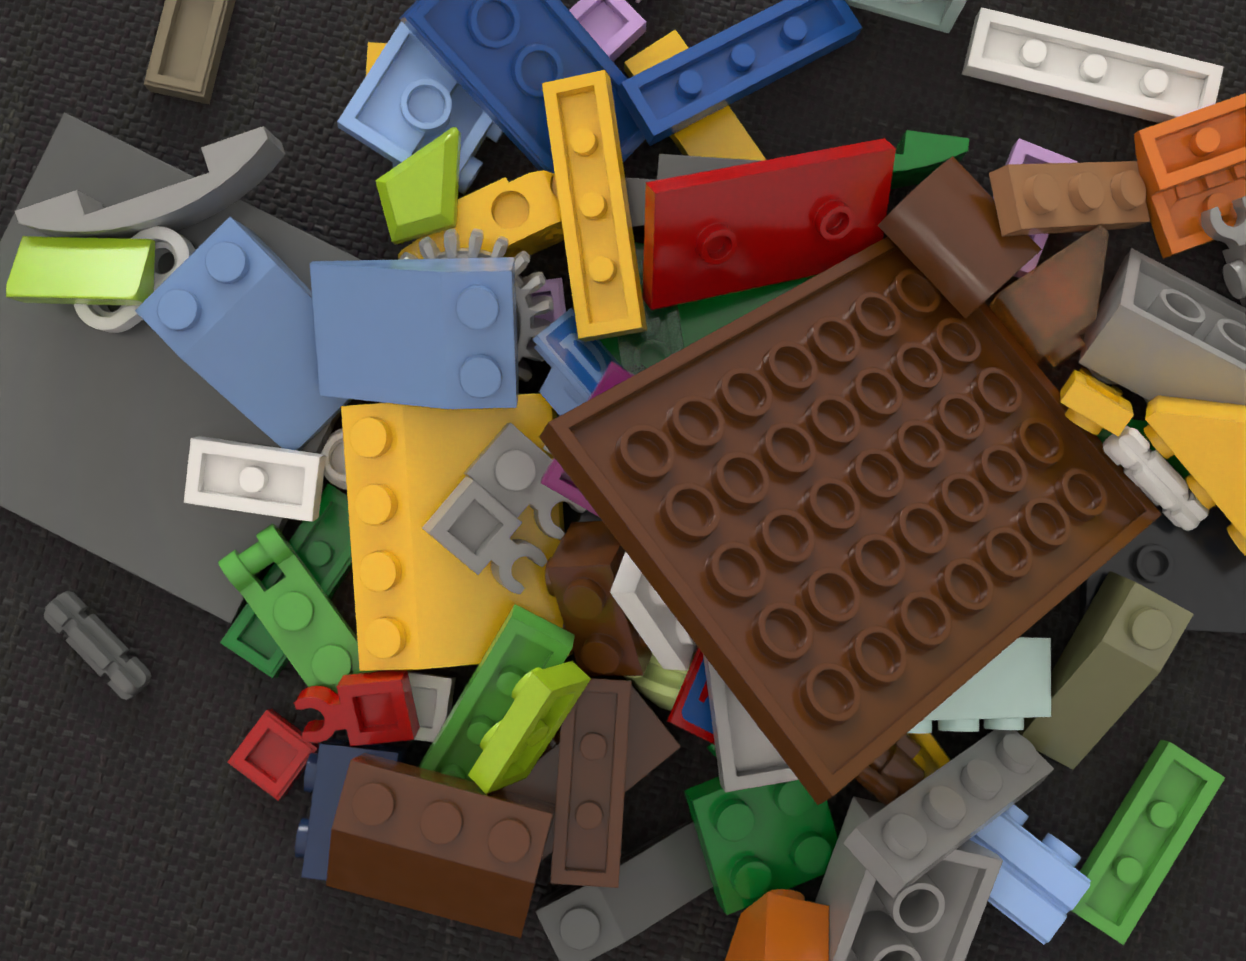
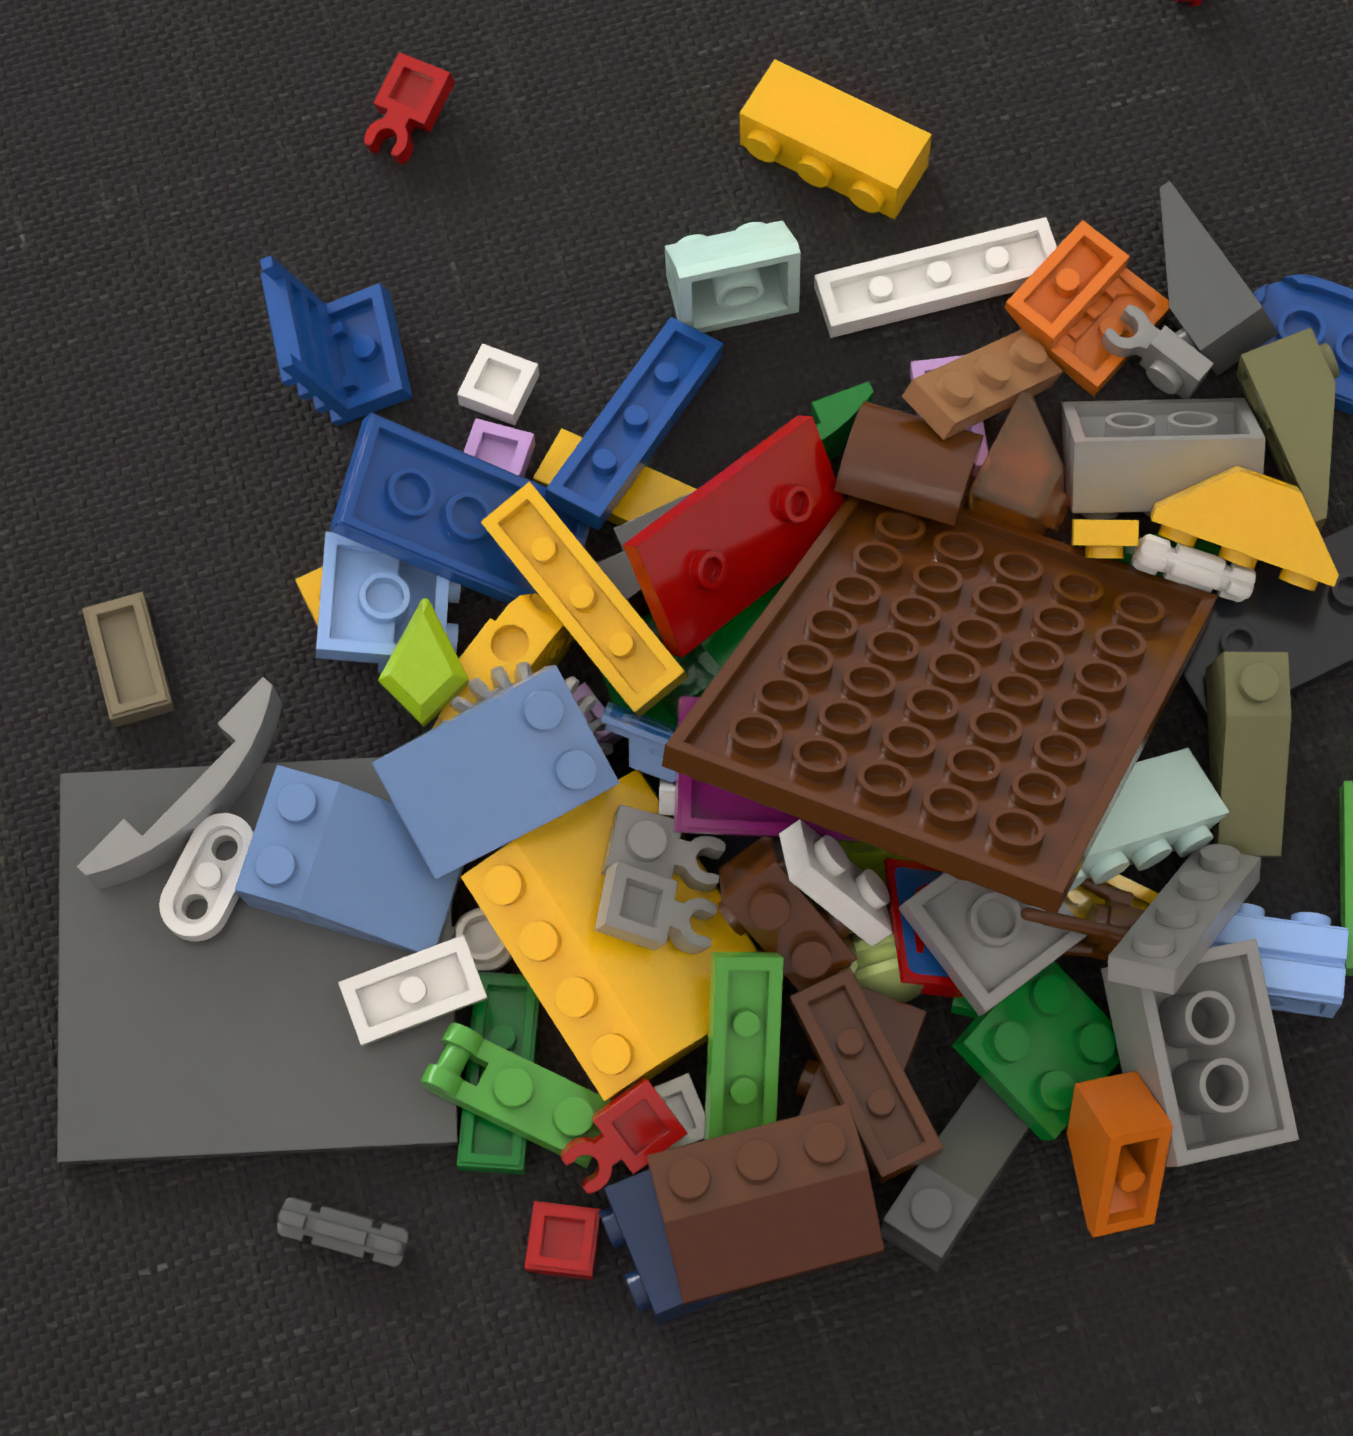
camera: 25 degrees left, 15 degrees down
(82, 271) = (165, 888): lime slope -> none
(519, 740) = (783, 1065): lime plate -> none

